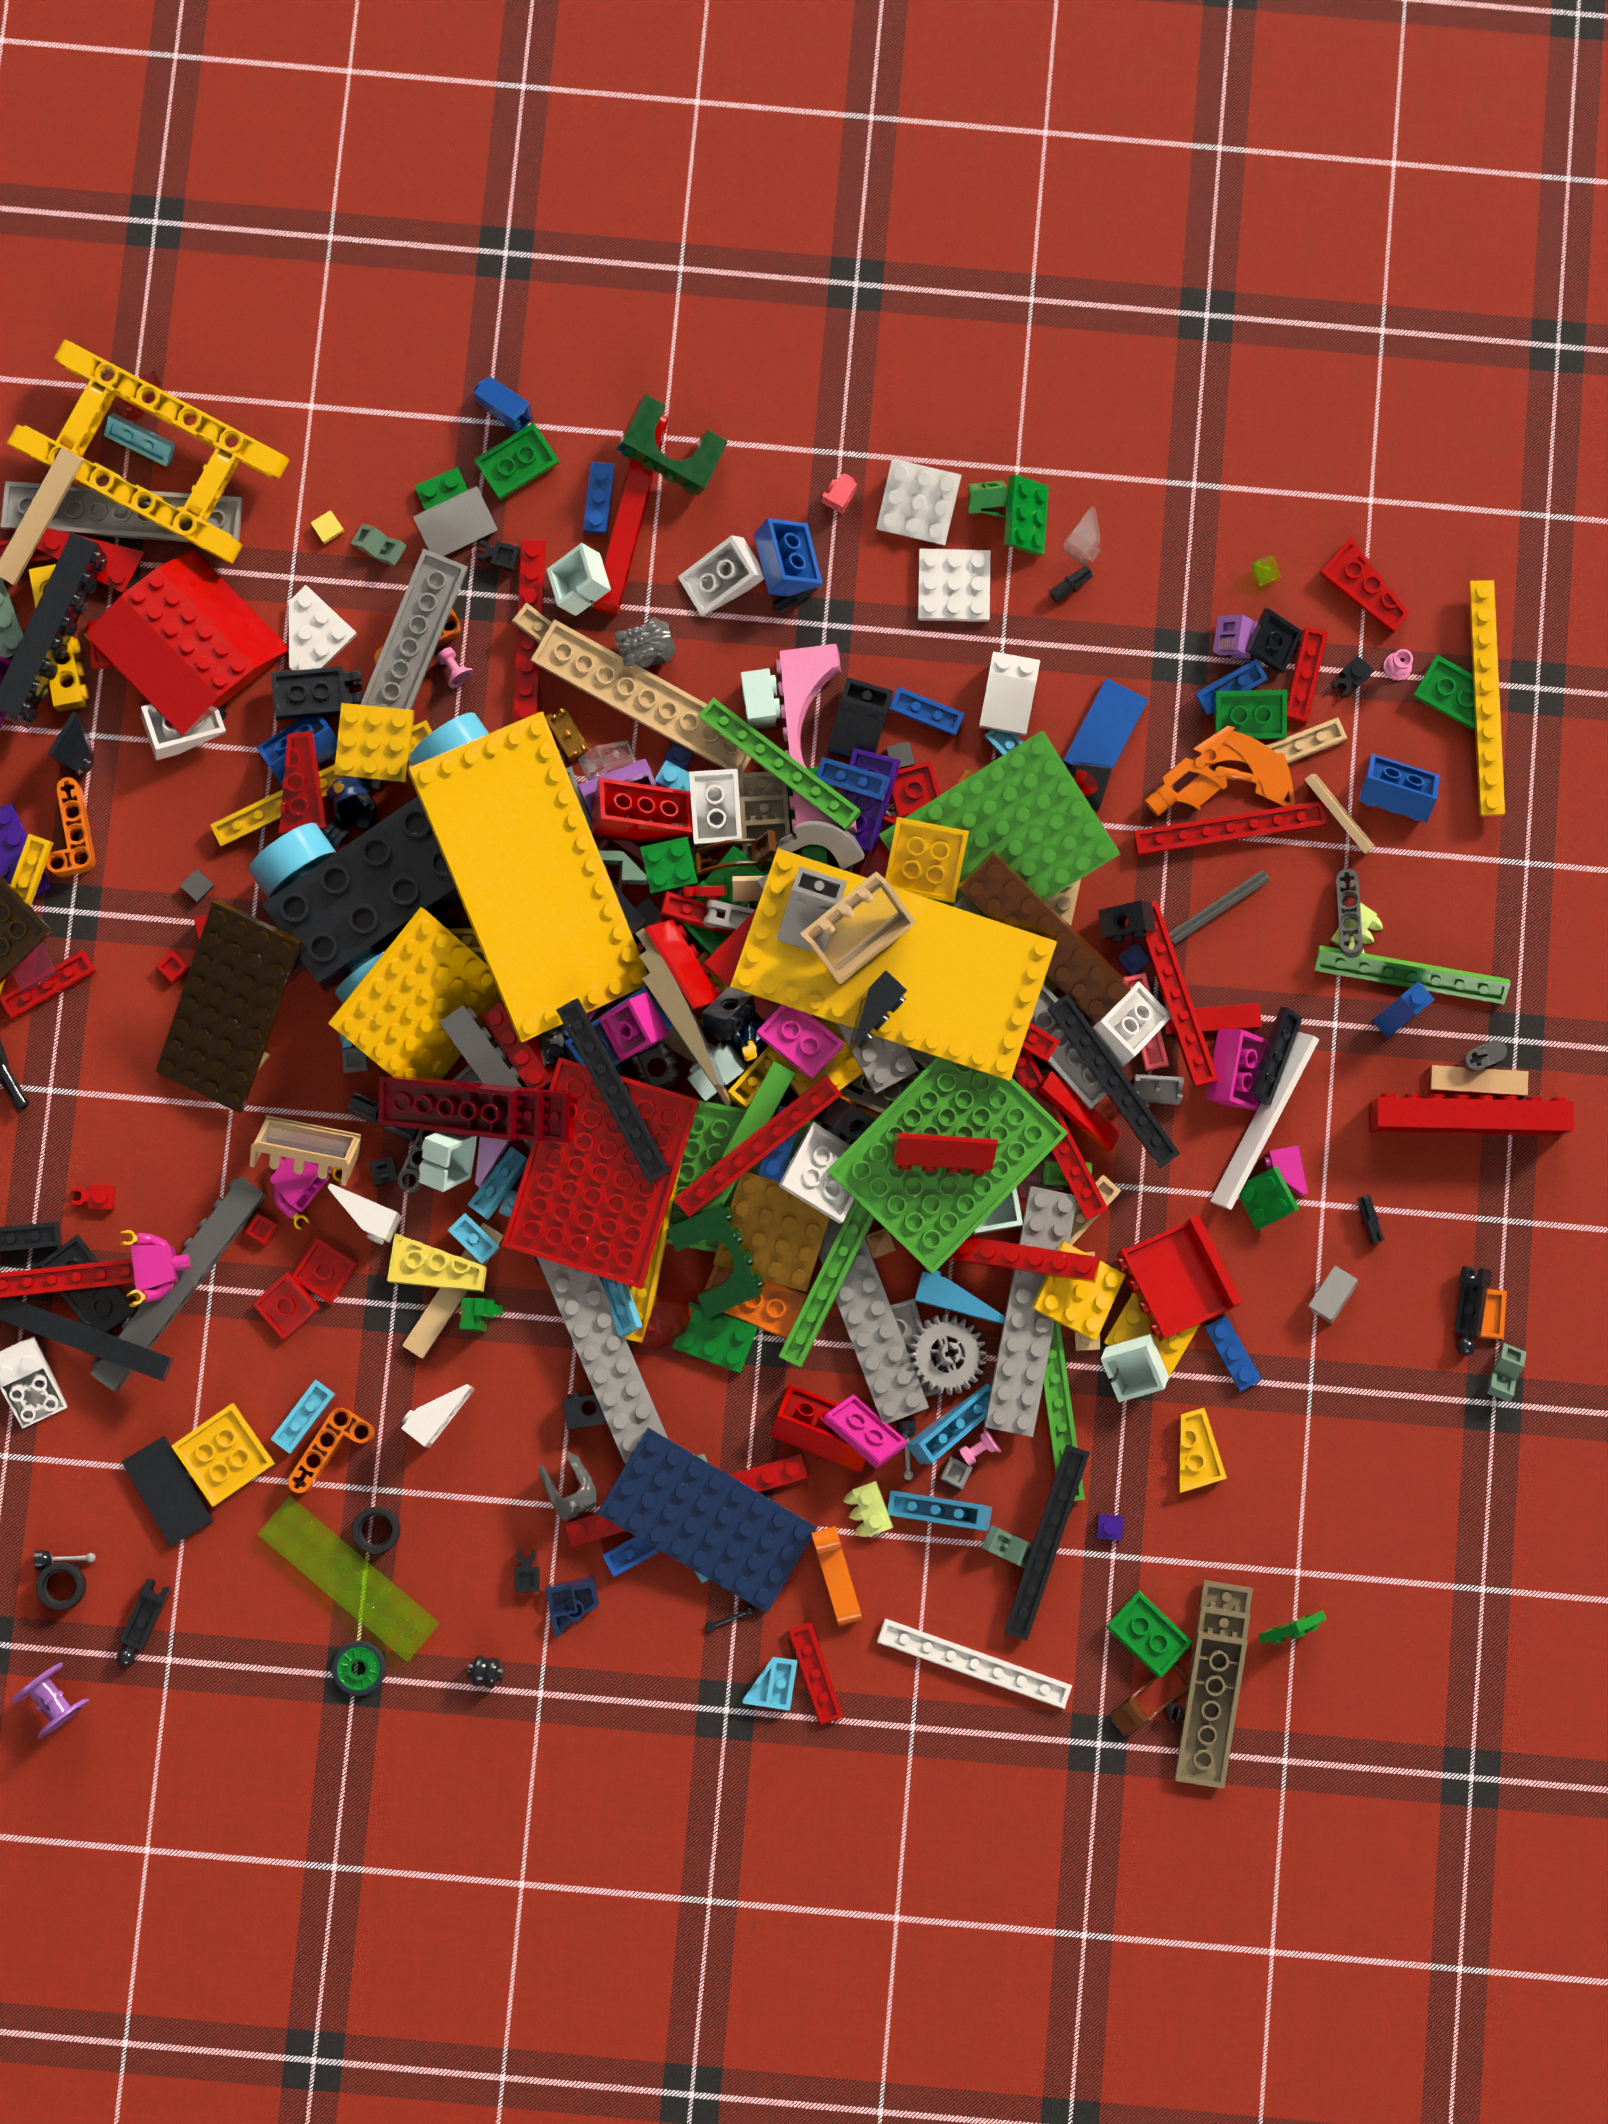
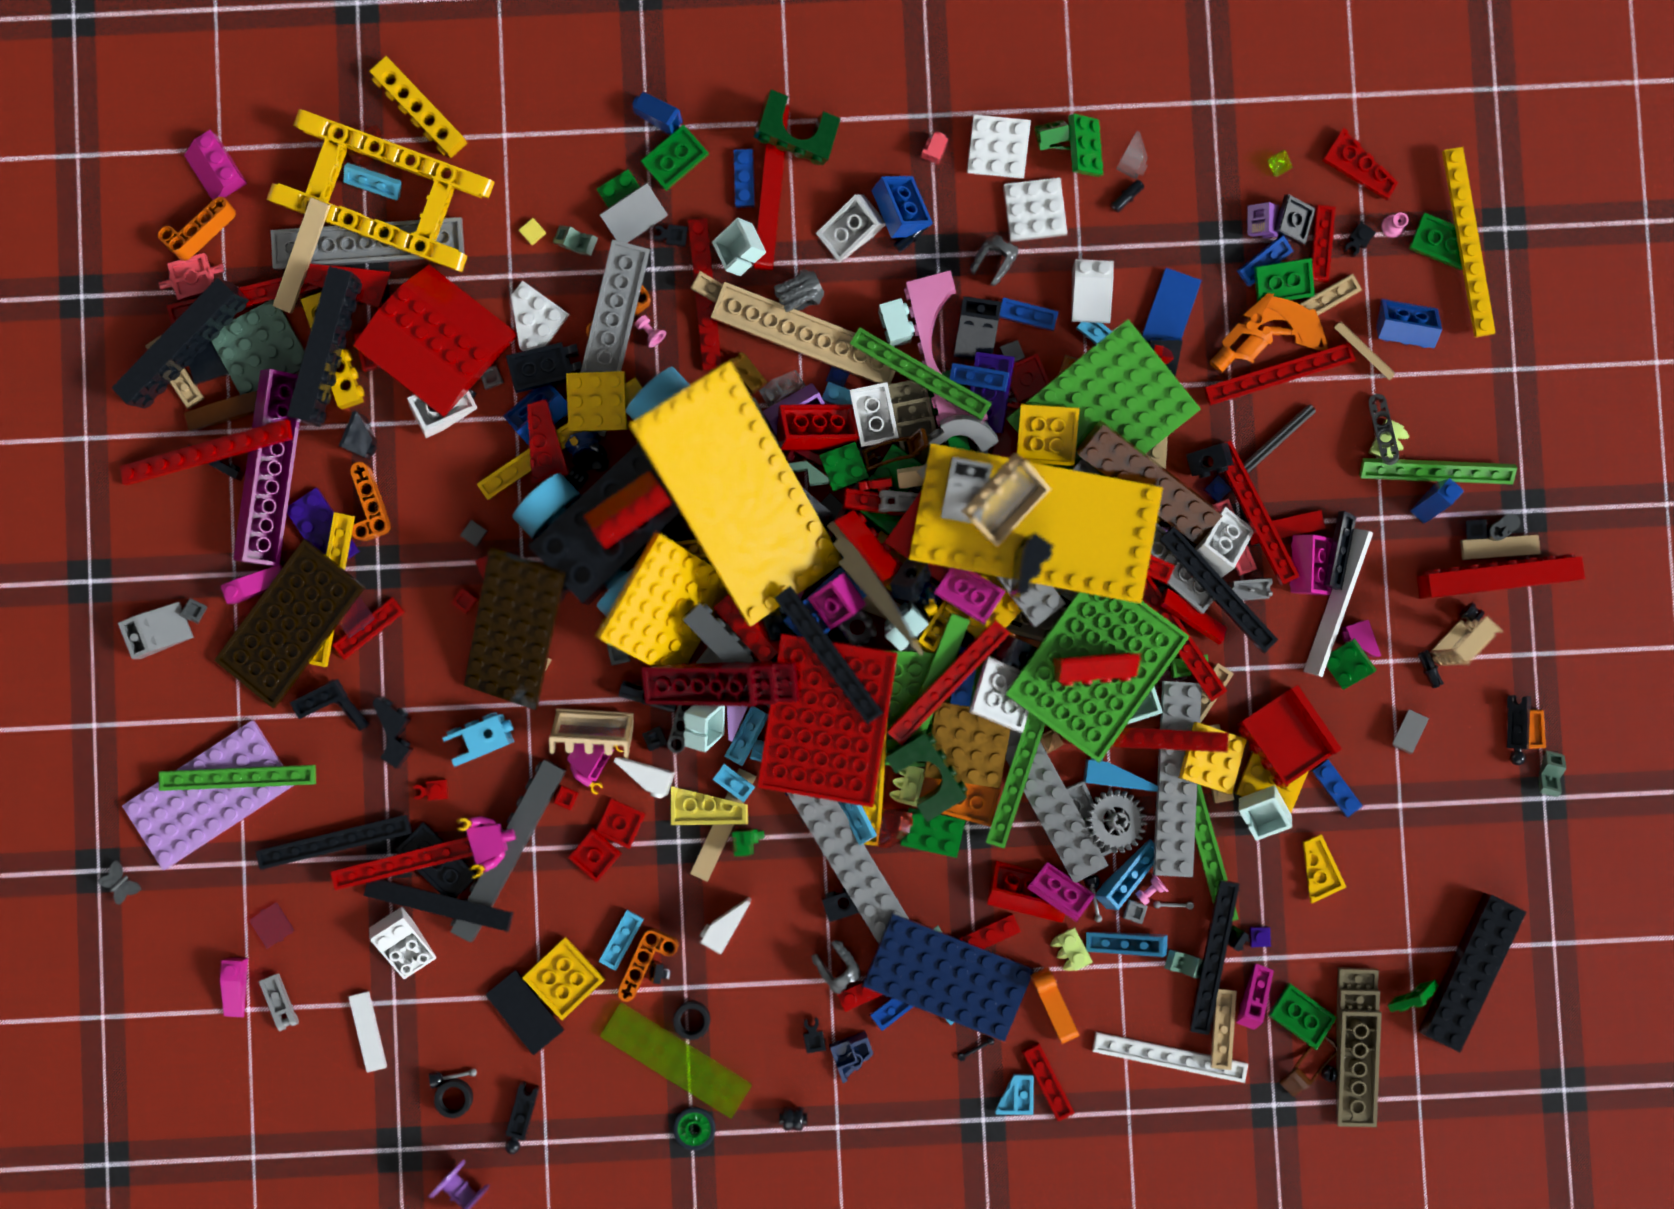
camera: 10 degrees left, 5 degrees up
(61, 1106) = (394, 723): none -> black arch
(168, 1137) = (483, 736): none -> medium azure torso
(178, 308) = (387, 70): none -> yellow brick
(249, 698) = (492, 377): none -> dark grey tile
(342, 1463) = (658, 972): none -> black tile
(390, 875) = (627, 510): none -> red slope
(694, 1272) = (909, 784): none -> yellowish green plate
(895, 619) = (996, 243): none -> dark grey piece
(985, 1468) = (1189, 905): none -> light grey hinge
(1046, 1636) = (1223, 1030): none -> tan plate
(1078, 1523) = (1237, 938): none -> black tile
(1092, 1601) = (1255, 997): none -> dark pink slope
(1371, 1608) = (1472, 971): none -> black brick
(1411, 1187) = (1464, 642): none -> tan window
(1431, 1158) = (1471, 612): none -> black wheel
(1450, 1054) = (1476, 529): none -> black plate

